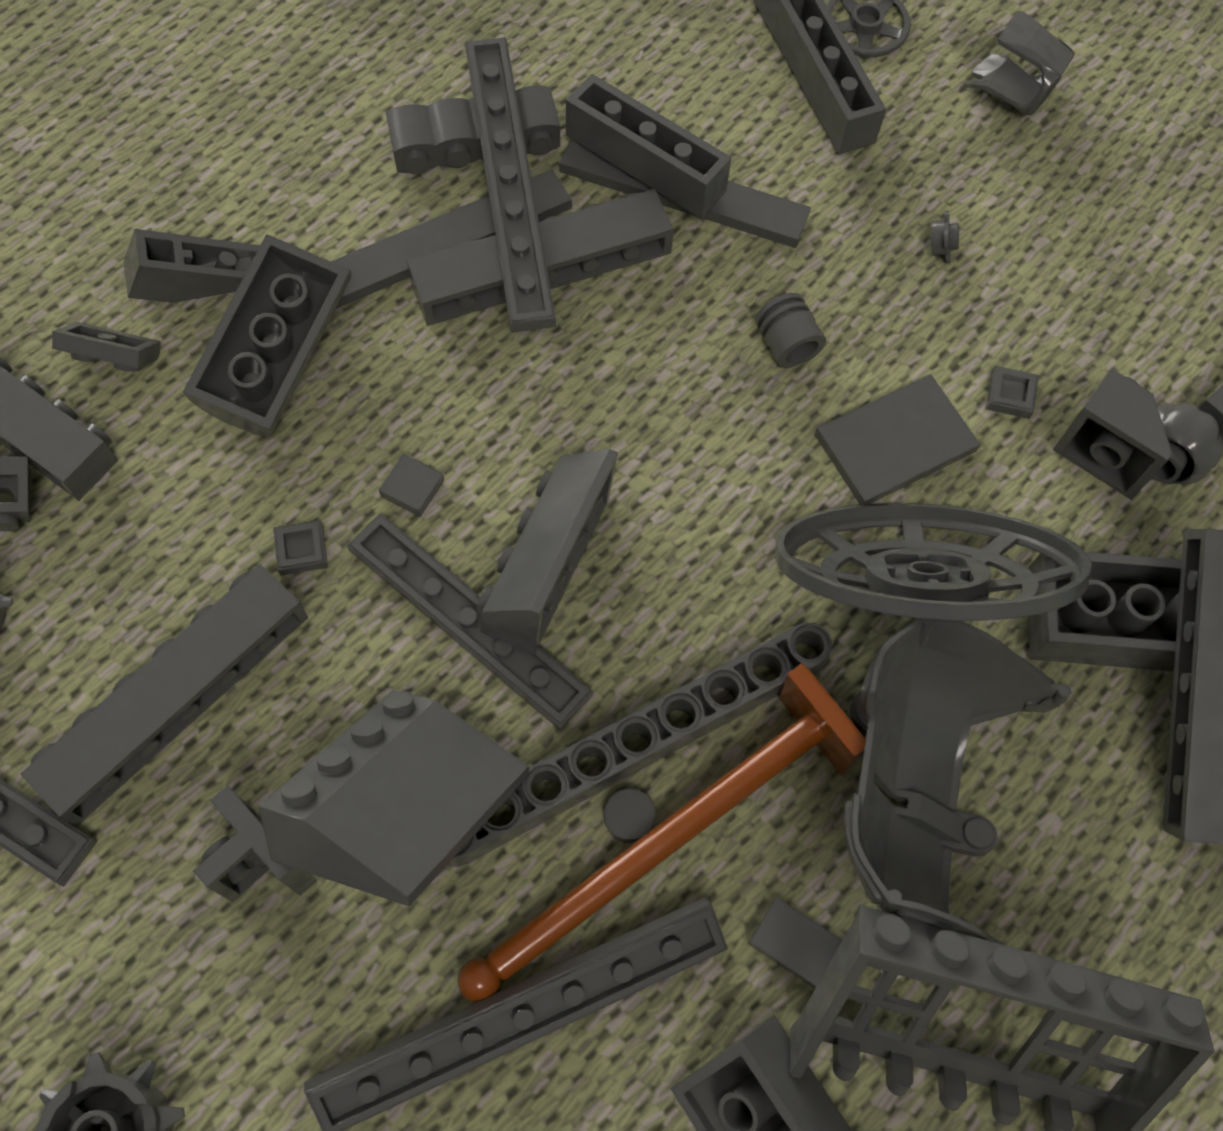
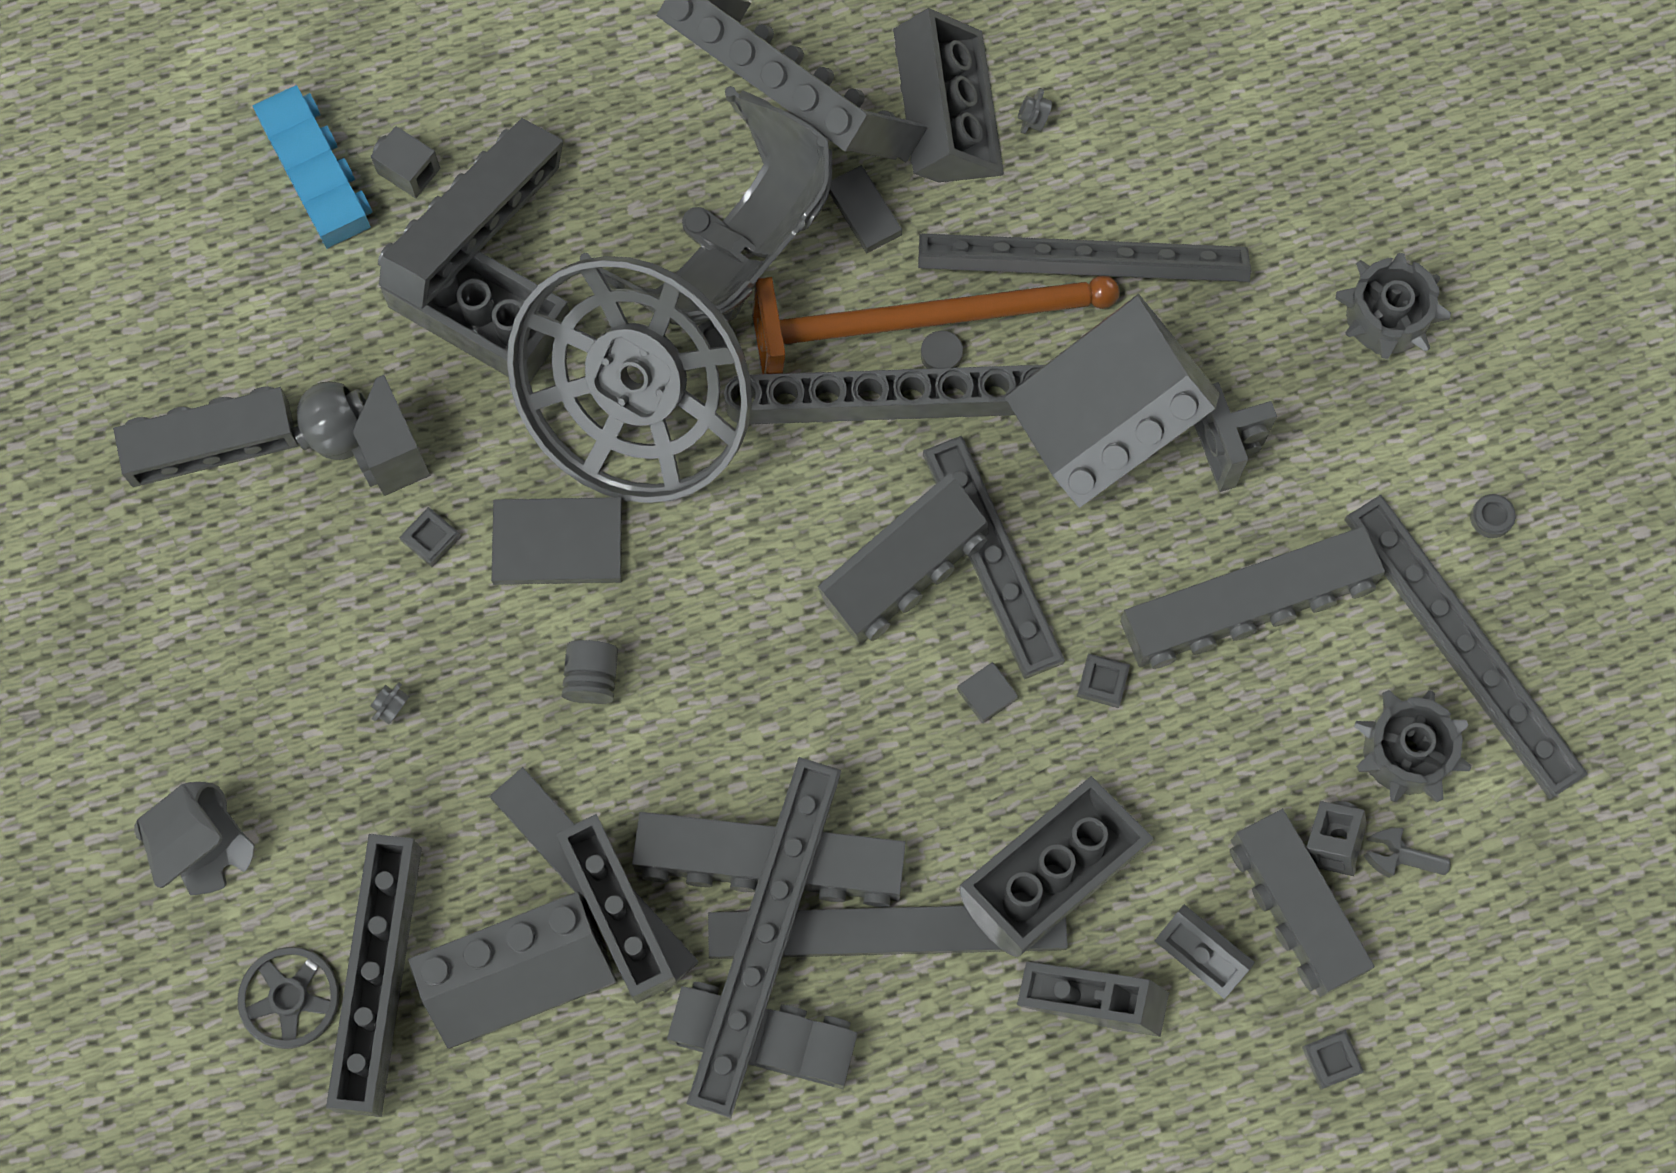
camera: 150 degrees left, 5 degrees up
(722, 83) = (513, 970): none -> dark grey slope

